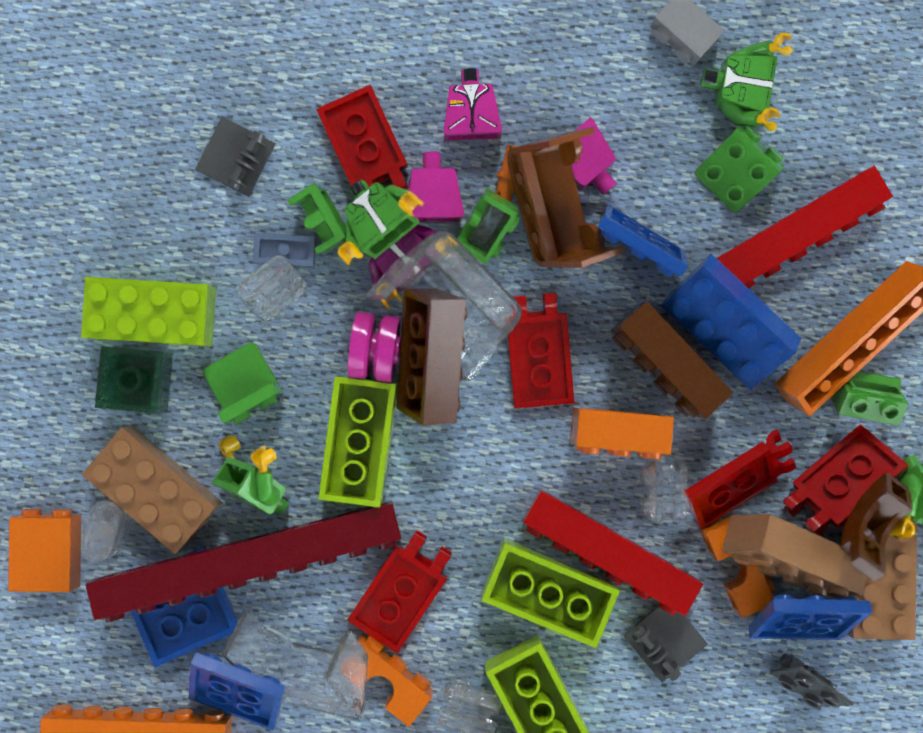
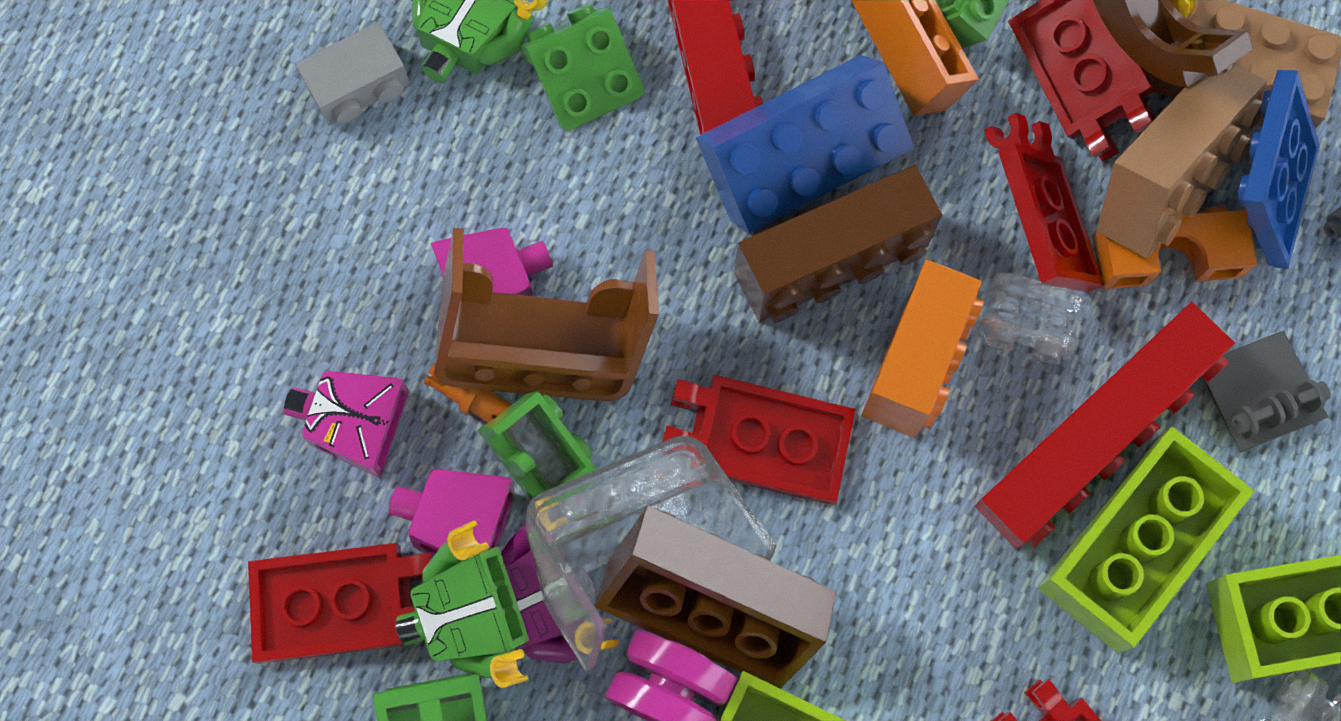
camera: 75 degrees left, 15 degrees down
(643, 241) = (646, 224): blue plate -> none

